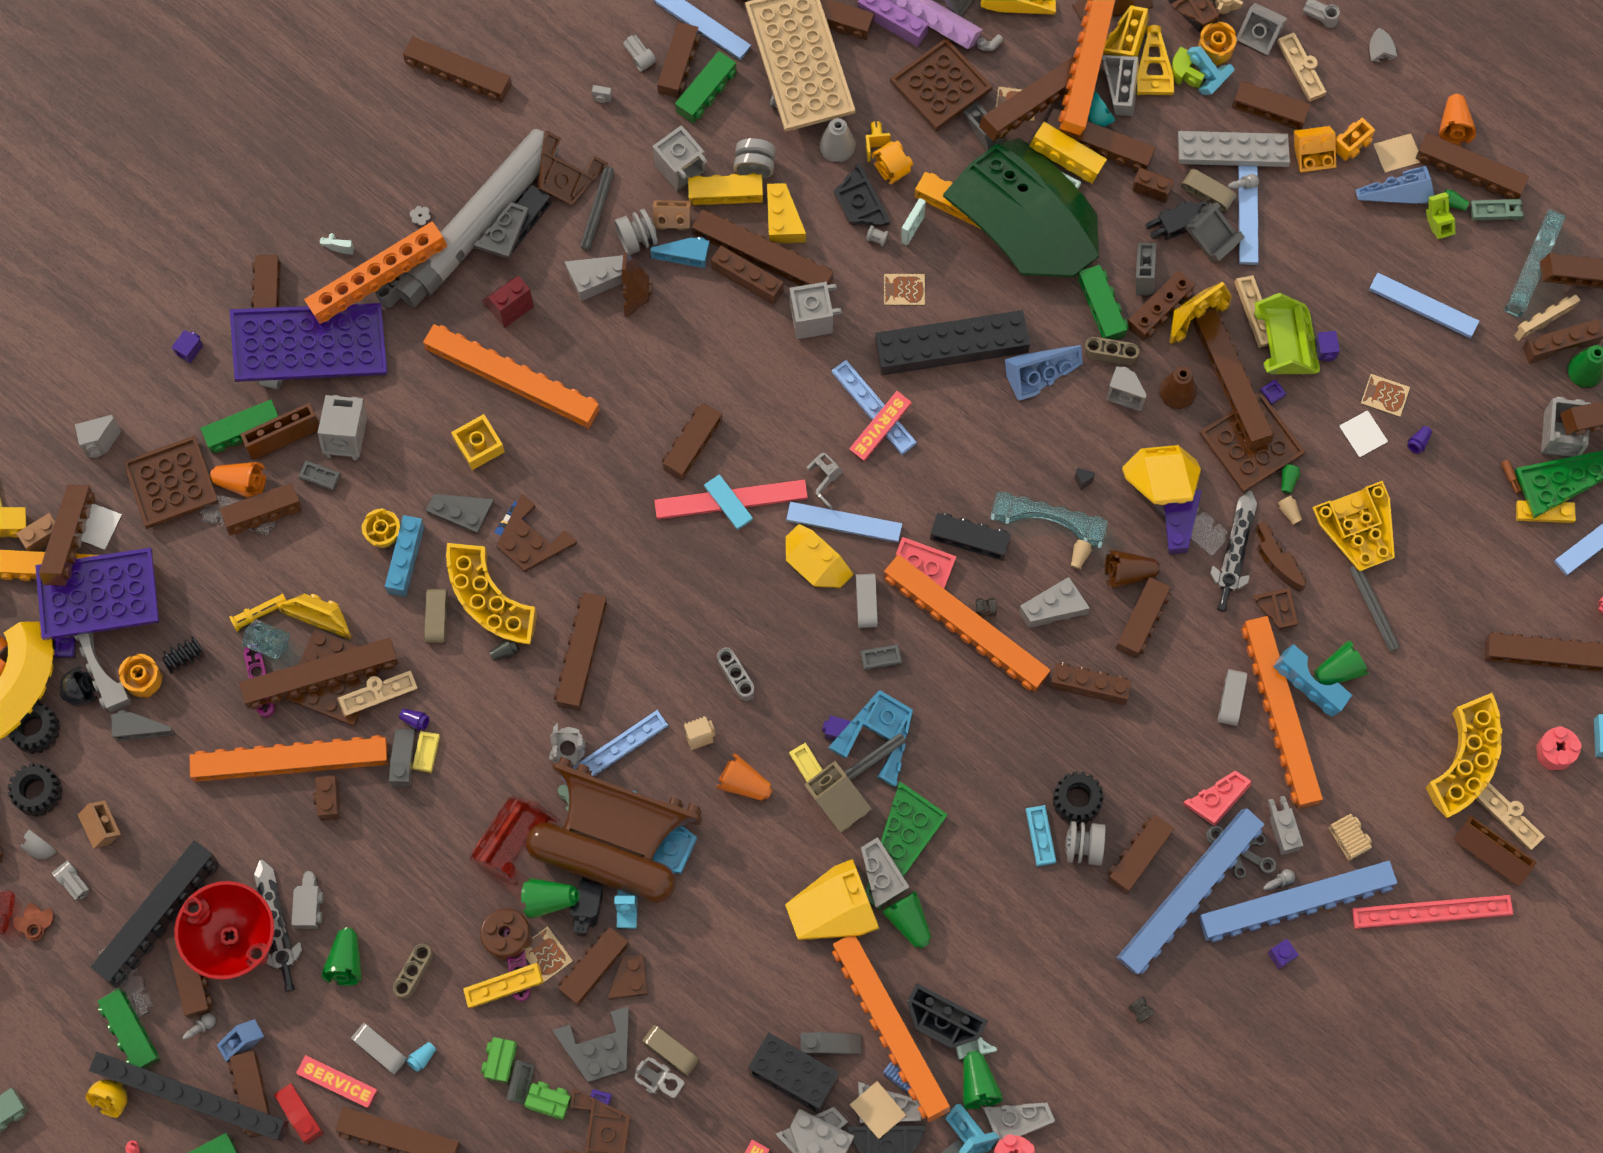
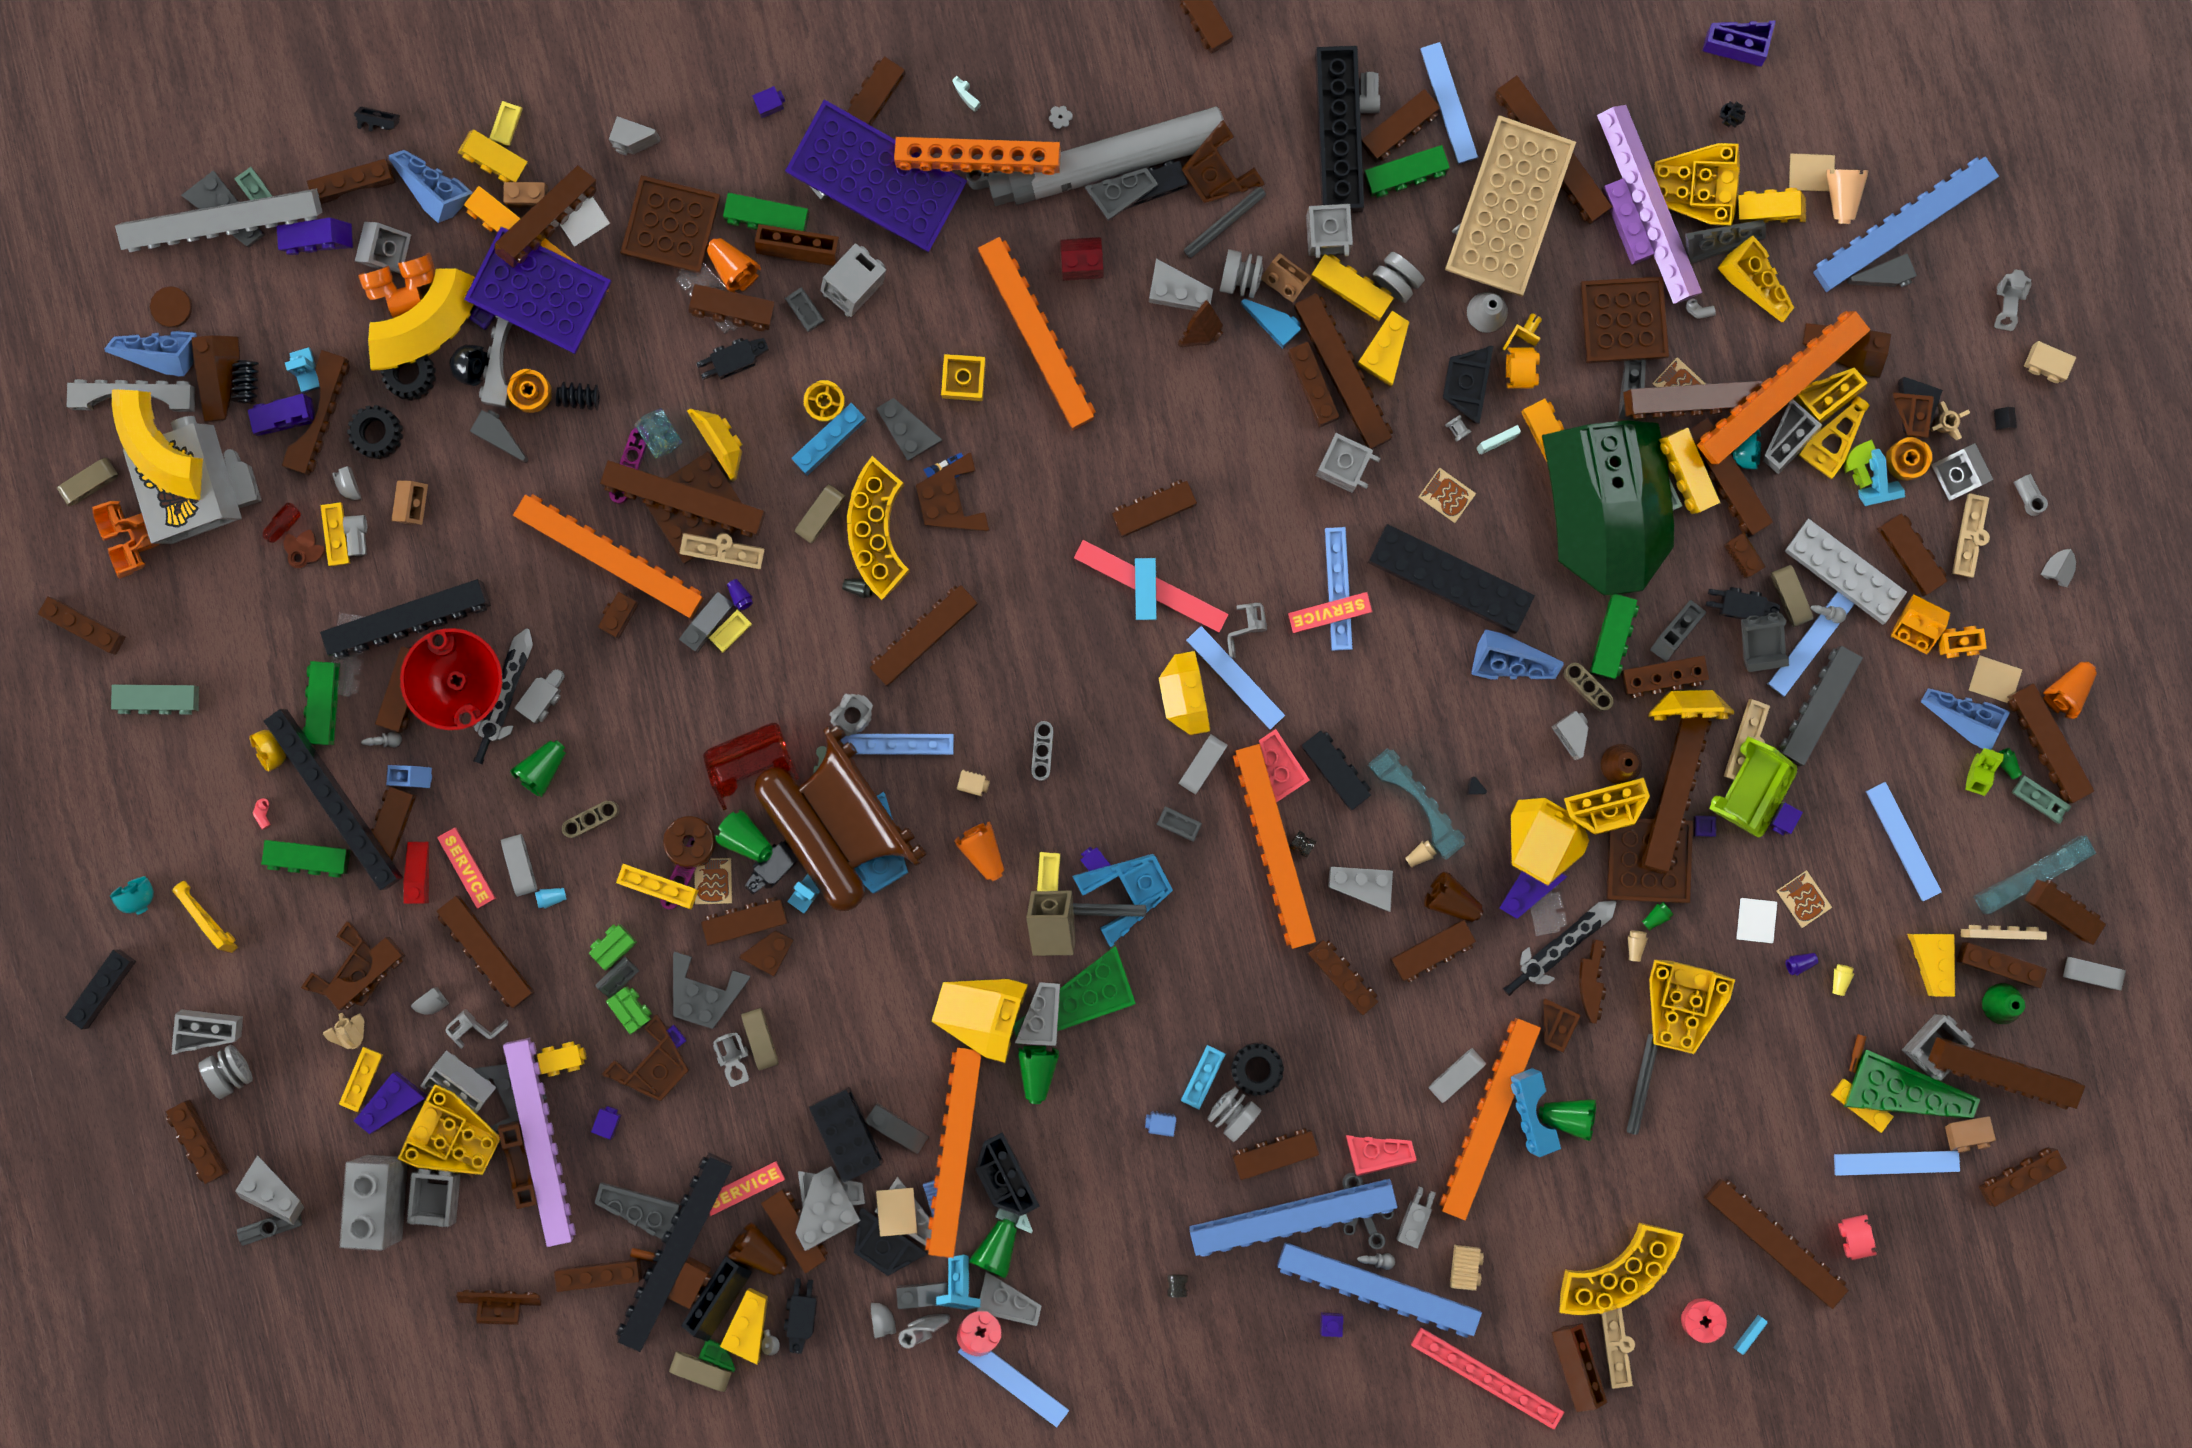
camera: 35 degrees right, 15 degrees up
(53, 891) = (334, 534): none -> yellow plate
(248, 613) = (660, 400): yellow pin -> none
(288, 546) = (733, 359): none -> black hinge
(601, 94) = (1305, 112): light grey plate -> none
(632, 84) = (1339, 126): none -> black brick
(1035, 890) = (1160, 1123): none -> medium blue brick
(1193, 420) = (1609, 807): none -> yellow wedge
(1288, 248) = (1820, 706): none -> dark grey brick
(1458, 430) = (1842, 978): none -> light yellow cone
(1515, 371) = (1936, 962): none -> yellow wedge

